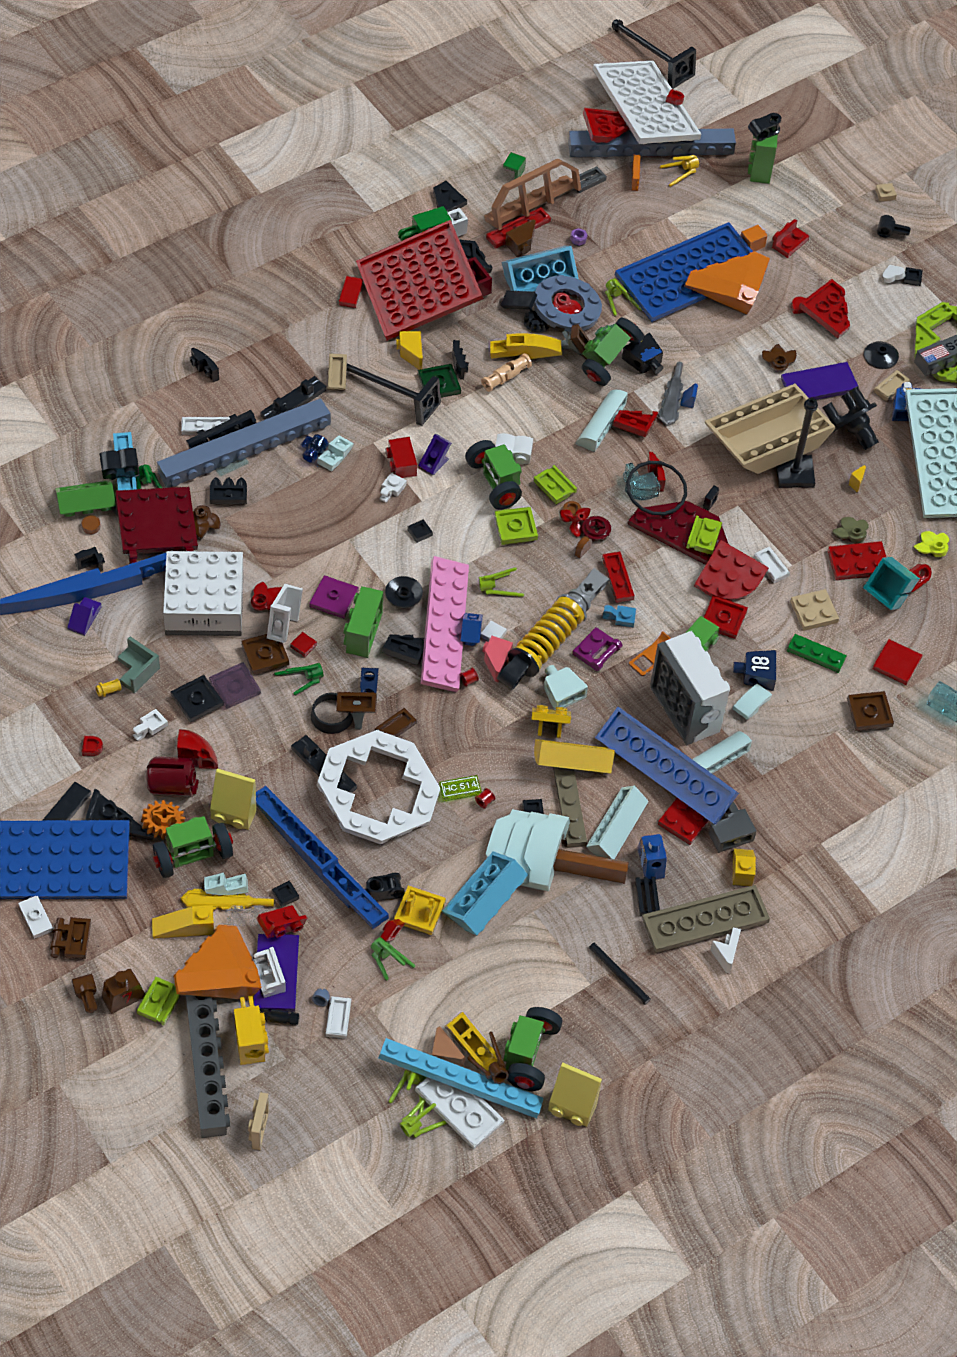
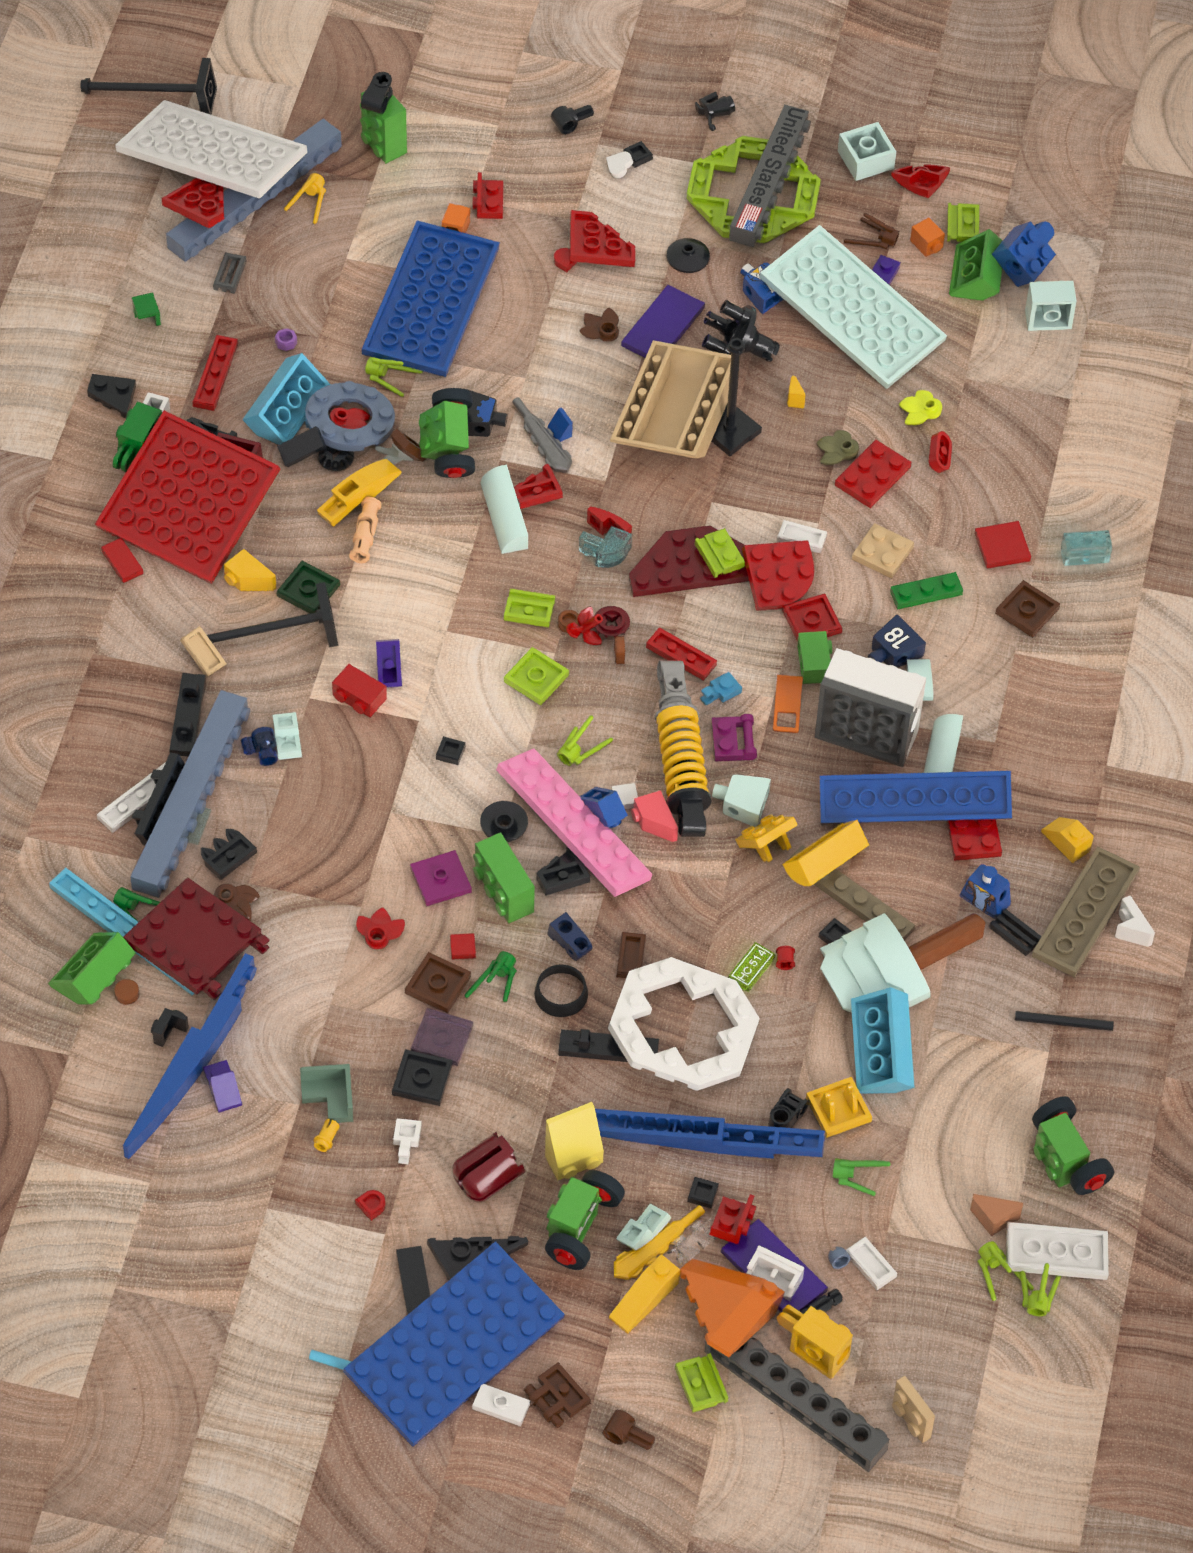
camera: 40 degrees left, 0 degrees up
(119, 463) = (96, 907): black brick -> none
(121, 990) = (663, 1397): reddish brown torso -> none
(161, 816) = (521, 1216): orange gear -> none
(195, 746) = (476, 1124): red brick -> none
(203, 593) = (323, 970): white piece -> none
(204, 363) = (54, 741): black slope -> none
(284, 608) = (426, 934): white panel -> none
(357, 704) = (586, 961): reddish brown piece -> none
(392, 486) = (378, 726): white plate -> none
(392, 929) = (836, 1144): red plate -> none
(459, 359) = (309, 553): black slope -> none
(460, 1078) = (1038, 1224): medium azure plate -> none
(469, 677) = (650, 855): red axle -> none
(471, 1040) = (1011, 1184): yellow slope -> none
(496, 1069) = (1064, 1190): reddish brown plant -> none
(499, 470) = (471, 634): brick -> none
(519, 445) = (454, 601): white brick -> none
(520, 238) = (234, 381): reddish brown slope -> none
(536, 197) = (199, 326): nougat plate -> none
(575, 1095) = (1151, 1156): light yellow slope -> none
(617, 822) = (922, 886): light aqua brick -> none
(635, 172) = (271, 232): orange tile -> none
(649, 511) = (641, 511): black piece -> none
(675, 97) = (237, 124): red tile -> none
(711, 498) = (685, 512): black tile -> none
(731, 282) = (485, 279): orange slope -> none
(733, 830) = (1028, 812): dark grey hinge -> none
(885, 192) = (526, 84): tan plate -> none
(888, 387) = (729, 279): tan tile -> none
(891, 583) = (930, 472): teal piece -> none

